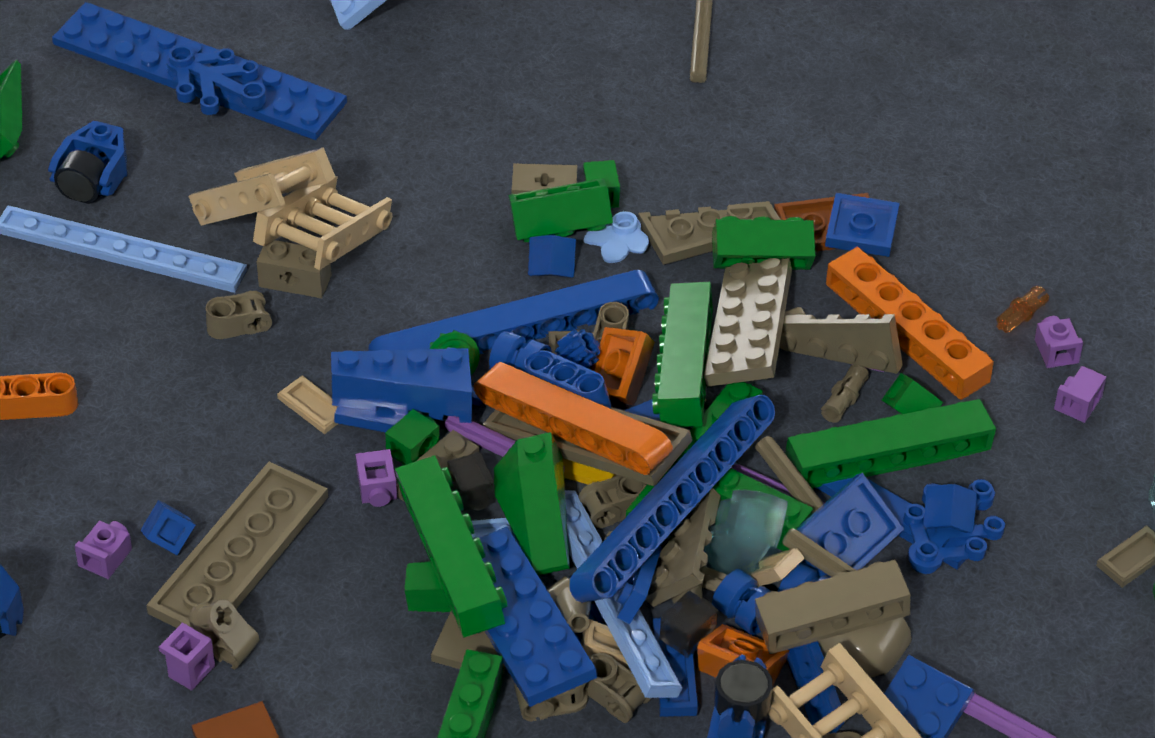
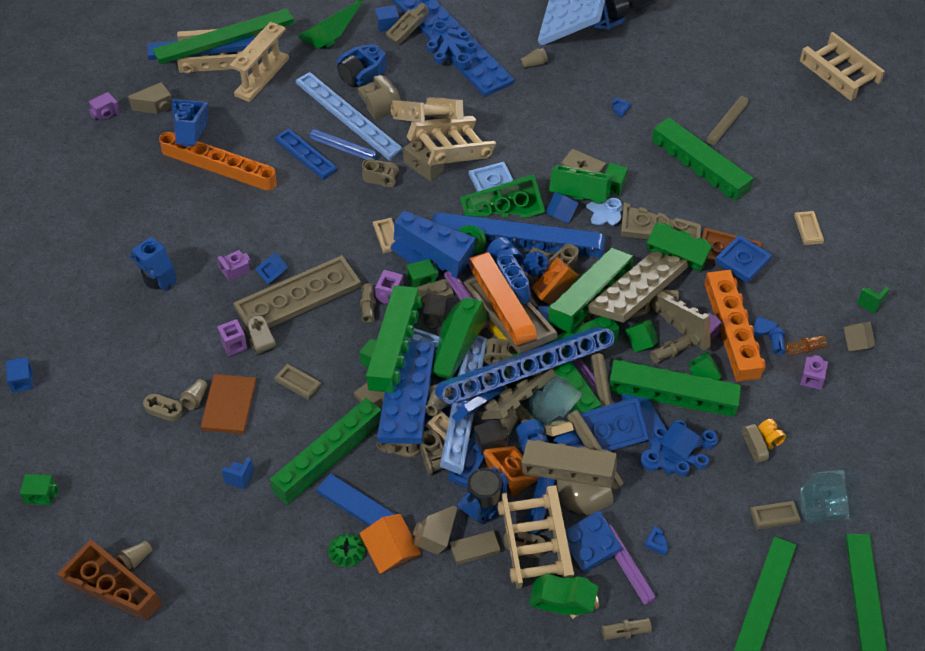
camera: 30 degrees right, 5 degrees up
(81, 73) = (386, 17): none -> blue panel
(93, 334) = (306, 154): none -> blue tile
(120, 73) = (407, 24): none -> dark tan hinge
(144, 296) = (342, 144): none -> blue axle
(154, 201) = (379, 96): none -> dark tan brick
(331, 678) = (298, 381): none -> dark tan tile
(356, 52) = (535, 58): none -> dark tan cone
(357, 516) = (368, 303): none -> dark tan pin
(418, 259) = (490, 176): none -> light blue tile
(467, 271) = (512, 197): none -> green wedge
(532, 77) = (620, 107): none -> blue tile
(705, 107) = (702, 159): none -> green brick
(794, 391) = (642, 335): none -> green panel
(915, 147) = (809, 228): none -> tan tile
(948, 307) = (763, 326): none -> blue tile
(981, 321) = (777, 339): none -> blue pin
(1006, 665) = (657, 541): none -> blue tile
(1047, 470) = (755, 443): none -> dark tan beam
(1055, 447) = (771, 433): none -> light orange wheel
(1066, 212) = (872, 300): none -> green panel
(1080, 394) = (806, 408): medium lavender brick -> none
(1083, 268) = (859, 336): none -> dark tan panel

